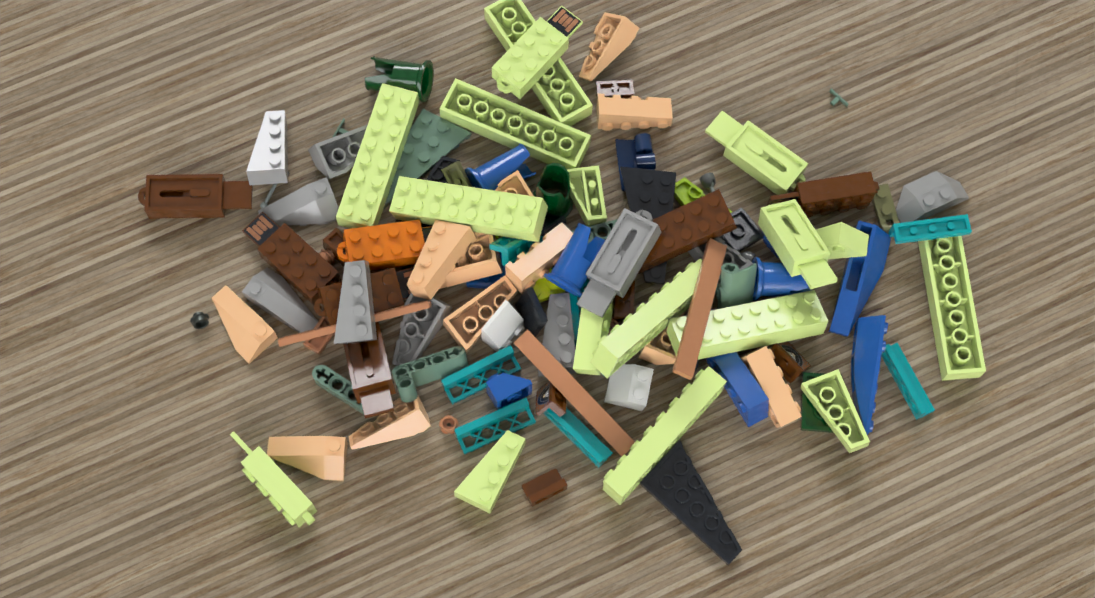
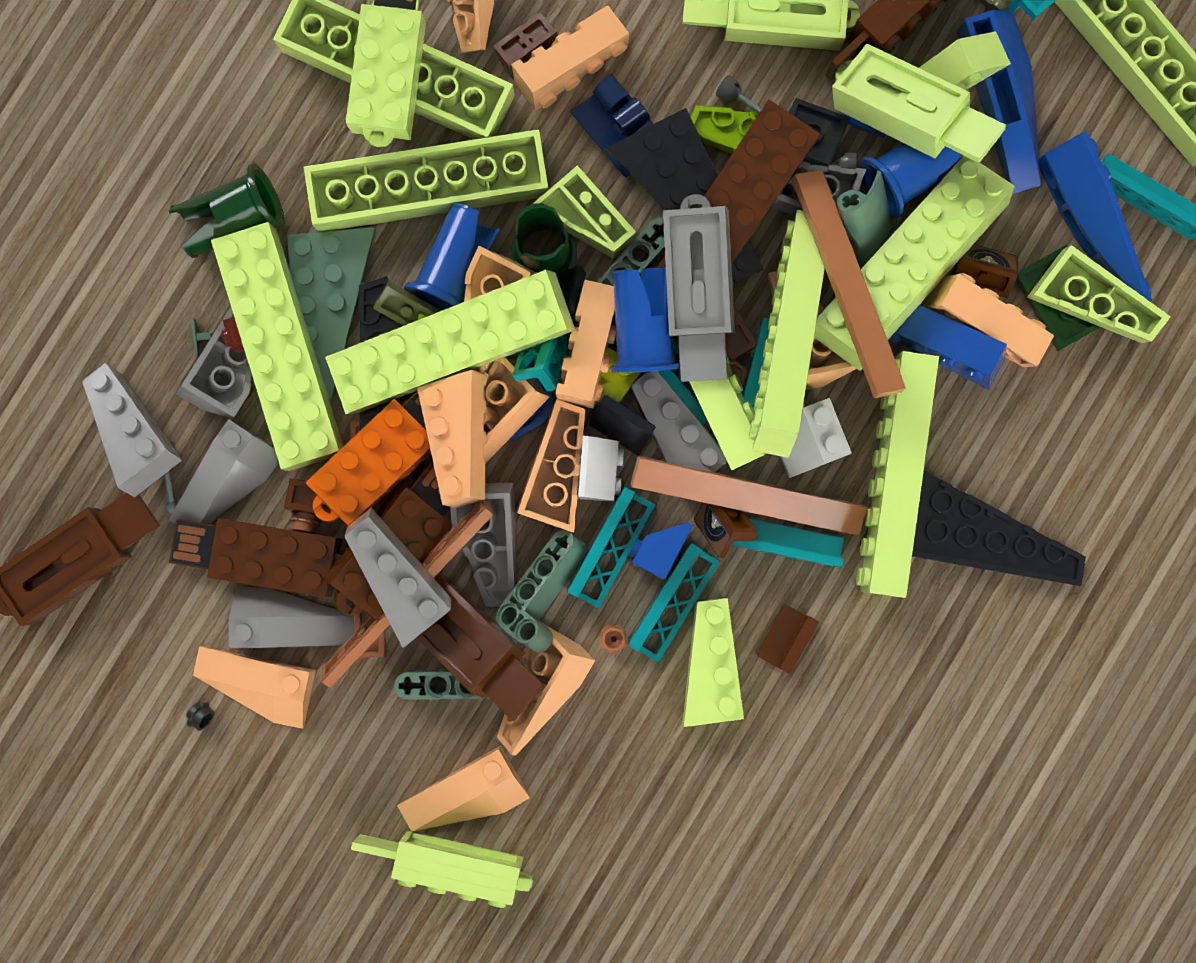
camera: 25 degrees left, 15 degrees up
(358, 136) = (231, 335): none -> clear red plate

